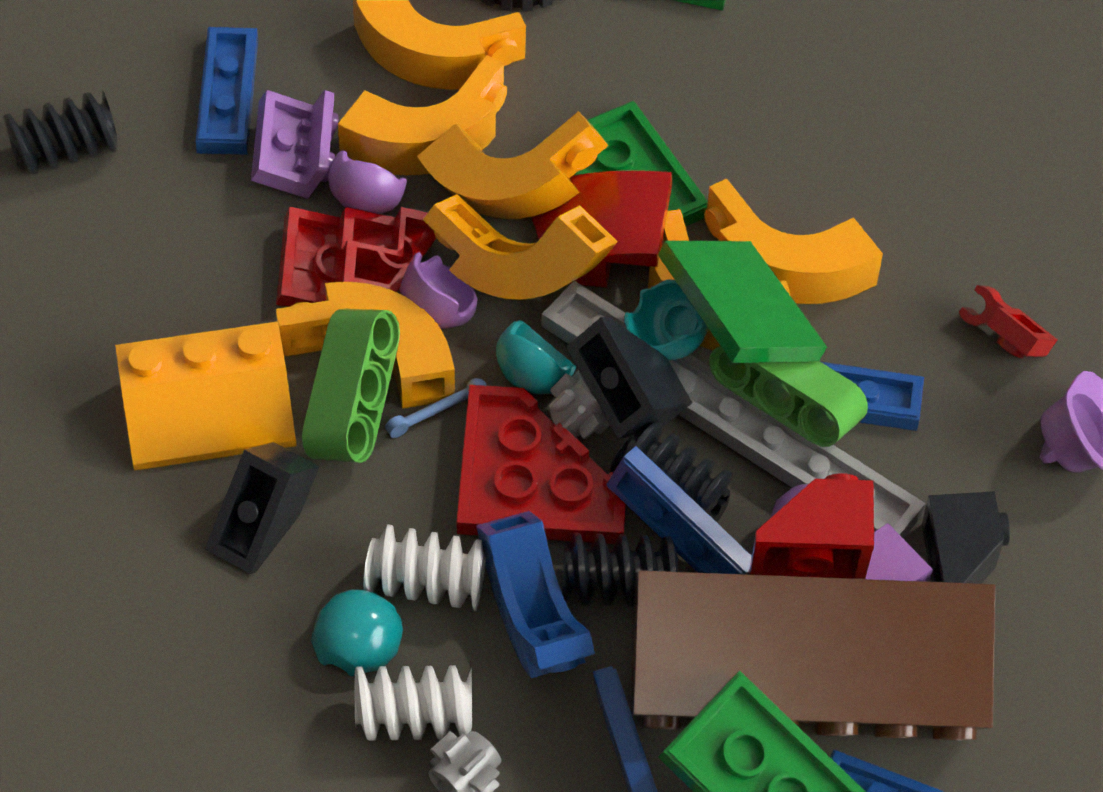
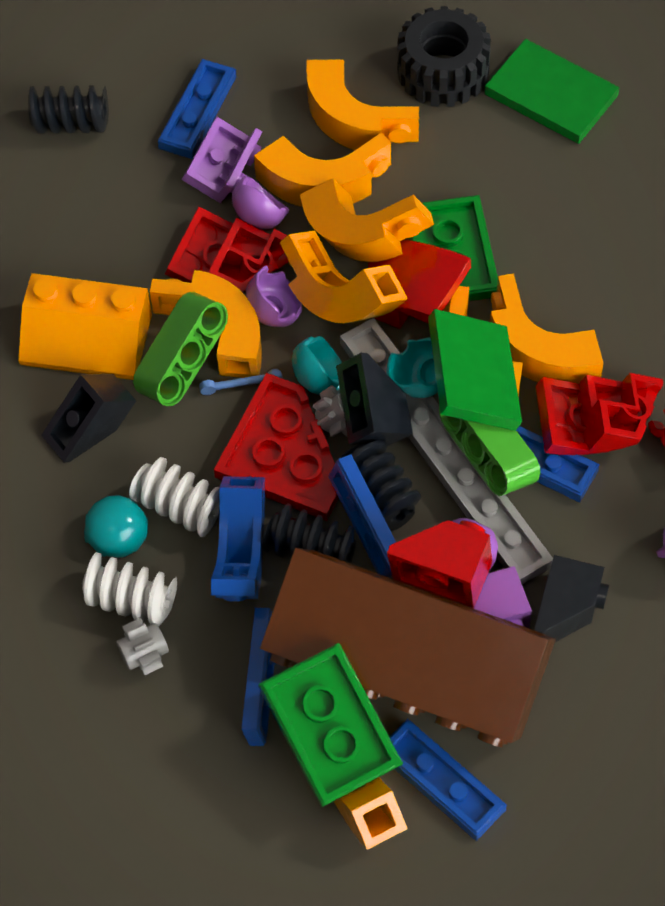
camera: 25 degrees right, 5 degrees up
(893, 318) = (595, 413): none -> red slope

